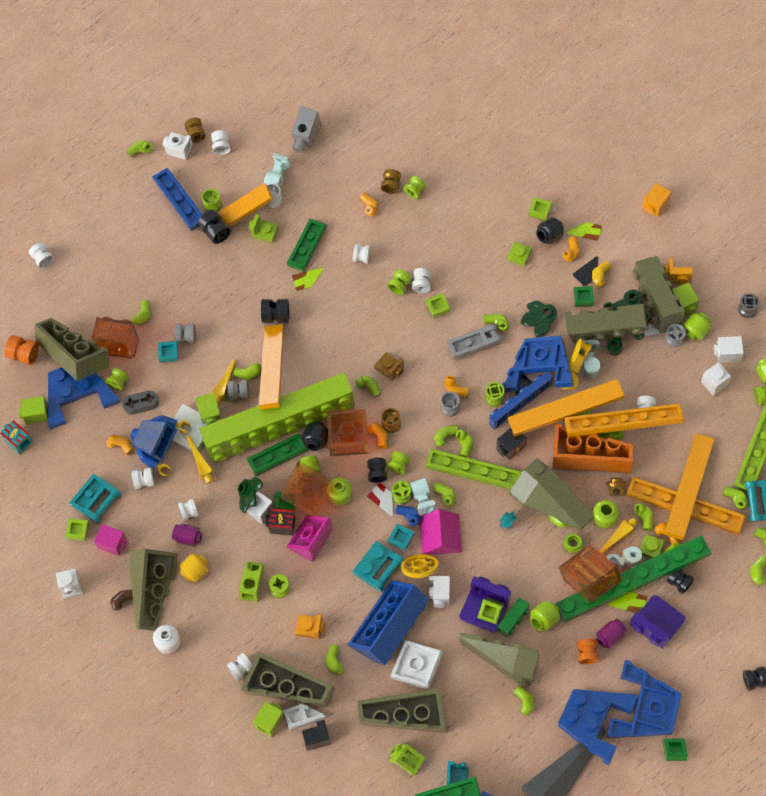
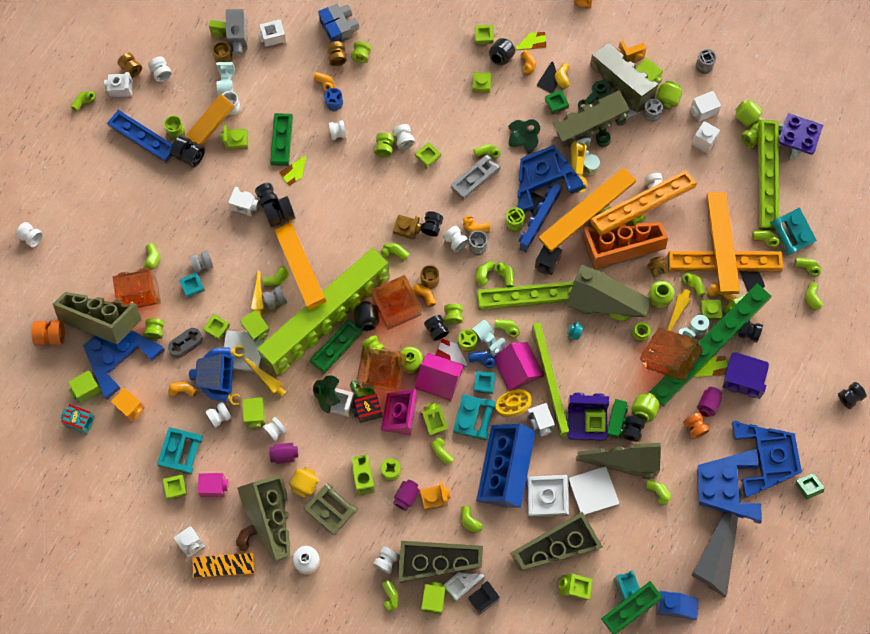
camera: 25 degrees left, 5 degrees up
(65, 440) = (128, 404): none -> light orange brick
(91, 617) = (223, 565): none -> tile
(174, 397) = (216, 327): none -> lime plate
(175, 488) = (254, 412): none -> lime brick
(203, 604) = (325, 513): none -> olive plate
(232, 701) = (392, 594): none -> lime arm
(246, 291) = (243, 202): none -> white brick
(270, 290) = (266, 193): none -> black wheel
(283, 614) = (406, 494): none -> magenta brick
(284, 145) = (222, 52): none -> pearl gold wheel
(288, 121) = (217, 28): none -> lime plate
(332, 587) = (440, 452): none -> lime arm
(338, 142) = (272, 33): none -> white brick
(339, 553) = (433, 418): none -> lime bracket
(360, 516) = (439, 376): none -> dark pink slope
(372, 219) = (336, 95): none -> blue wheel
(401, 152) = (335, 23): none -> hips
(414, 371) = (432, 223): none -> black wheel
(430, 392) = (455, 238): none -> white wheel
(462, 677) = (593, 491): none -> white tile
(464, 557) = (550, 380): none -> lime tile
(524, 631) = (633, 428): none -> black wheel
(707, 531) = (751, 278): none -> black sticker

